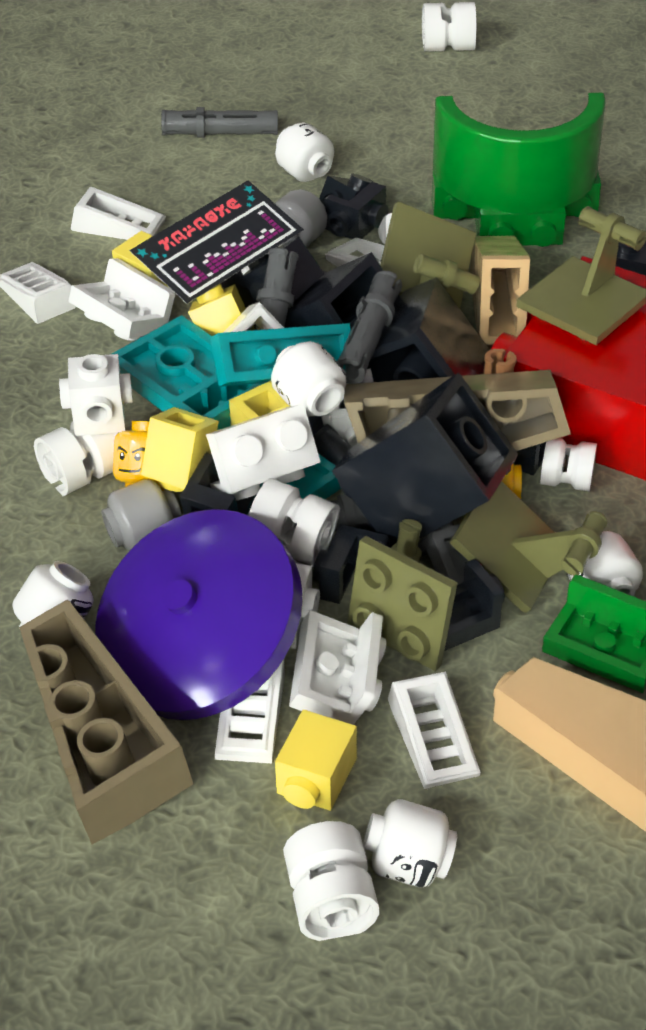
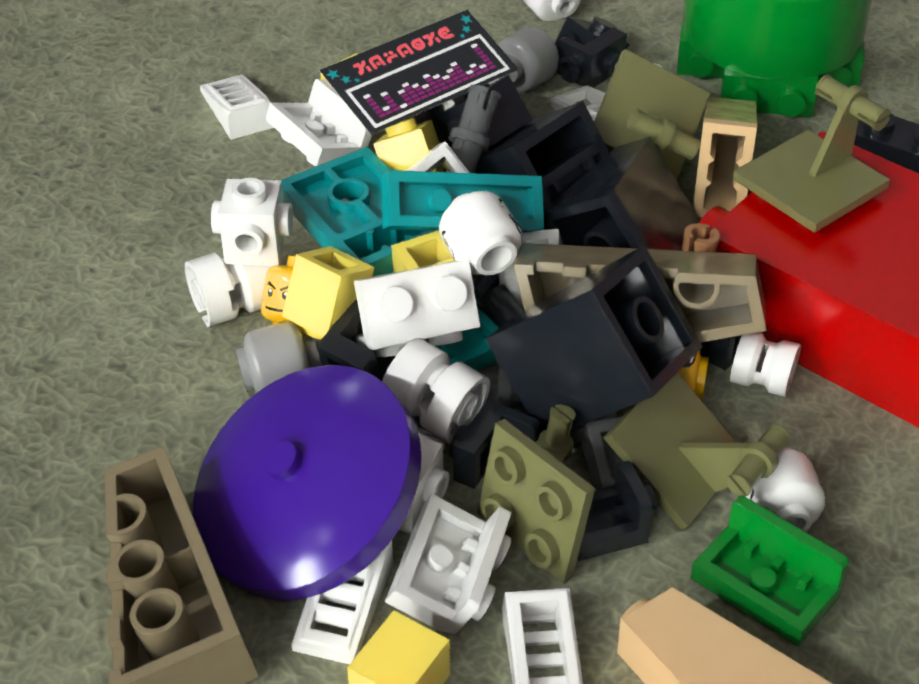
camera: 10 degrees right, 0 degrees up
(50, 586) = (159, 425): white head -> none
(107, 215) = (330, 34): white slope -> none
(372, 316) = (570, 171): dark grey pin -> none

